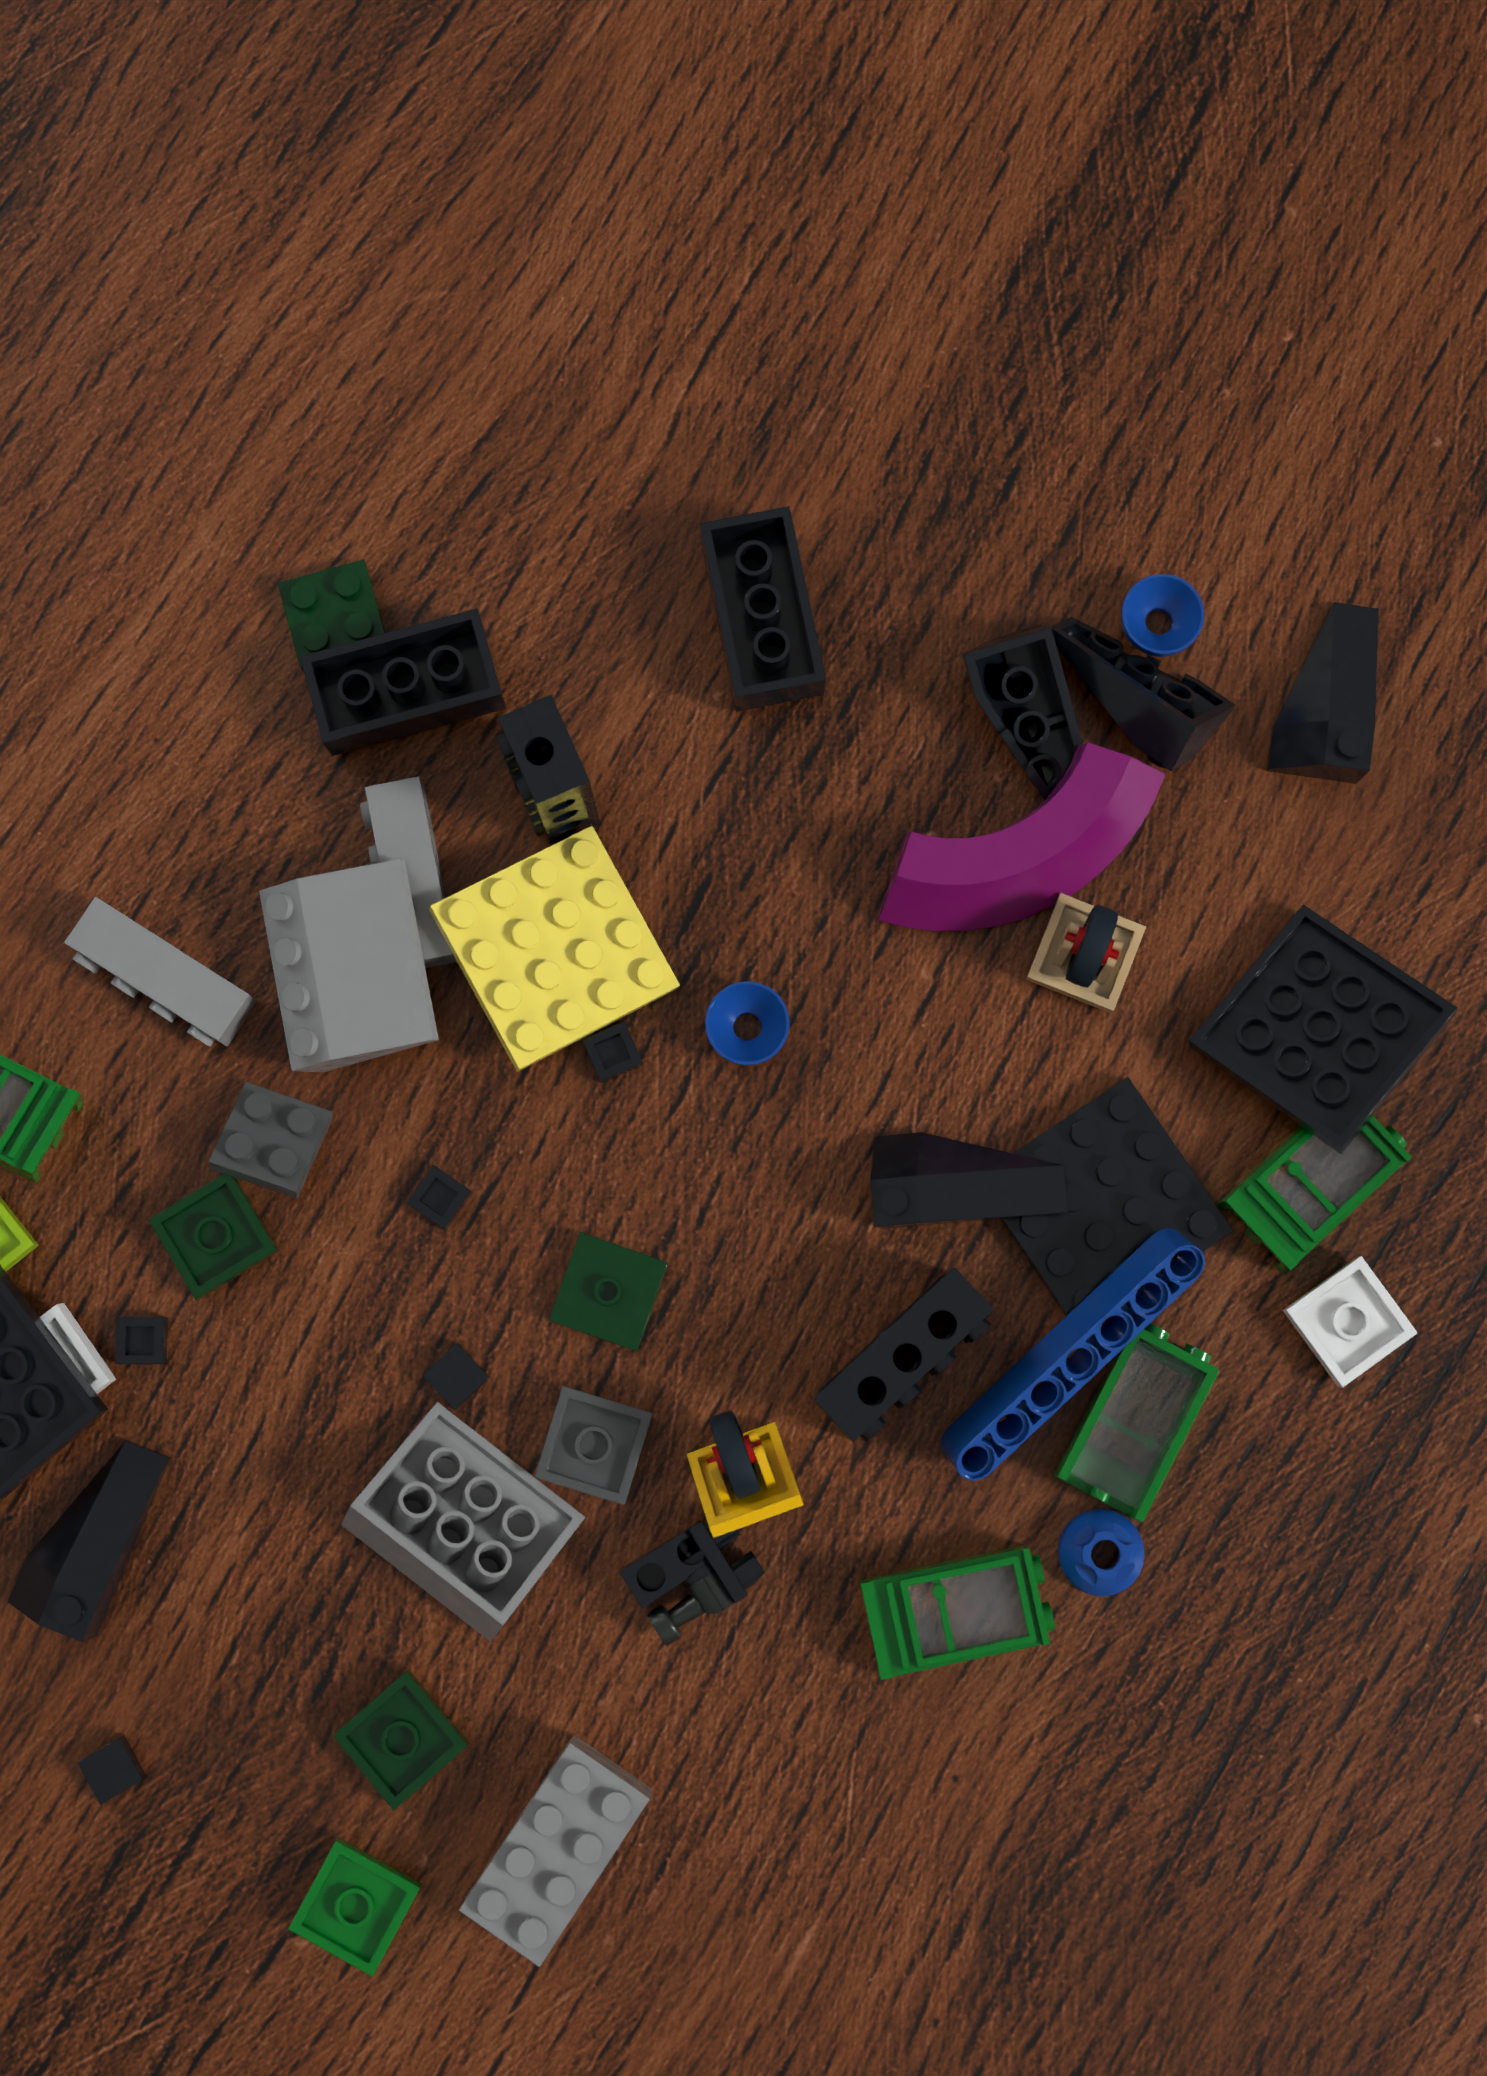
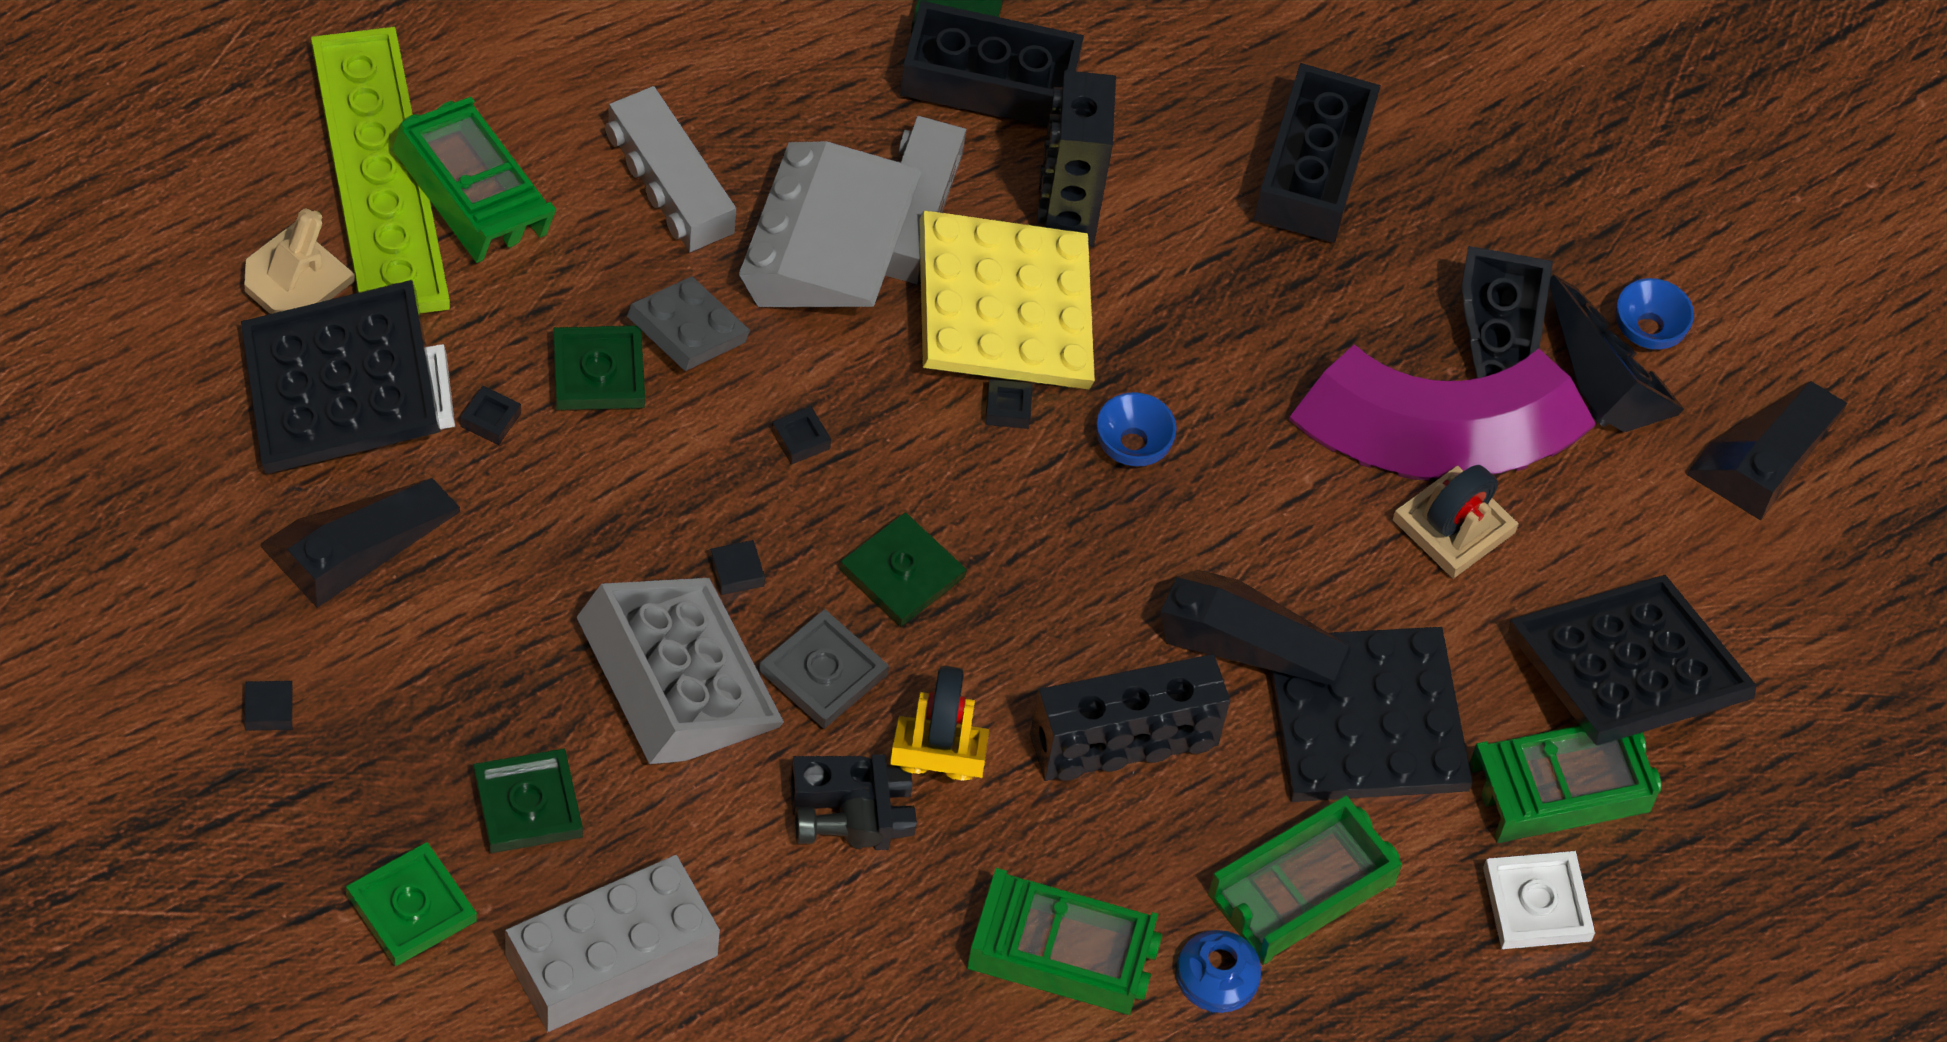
camera: 20 degrees right, 25 degrees down
(1065, 1376) = (1300, 790): blue beam -> none

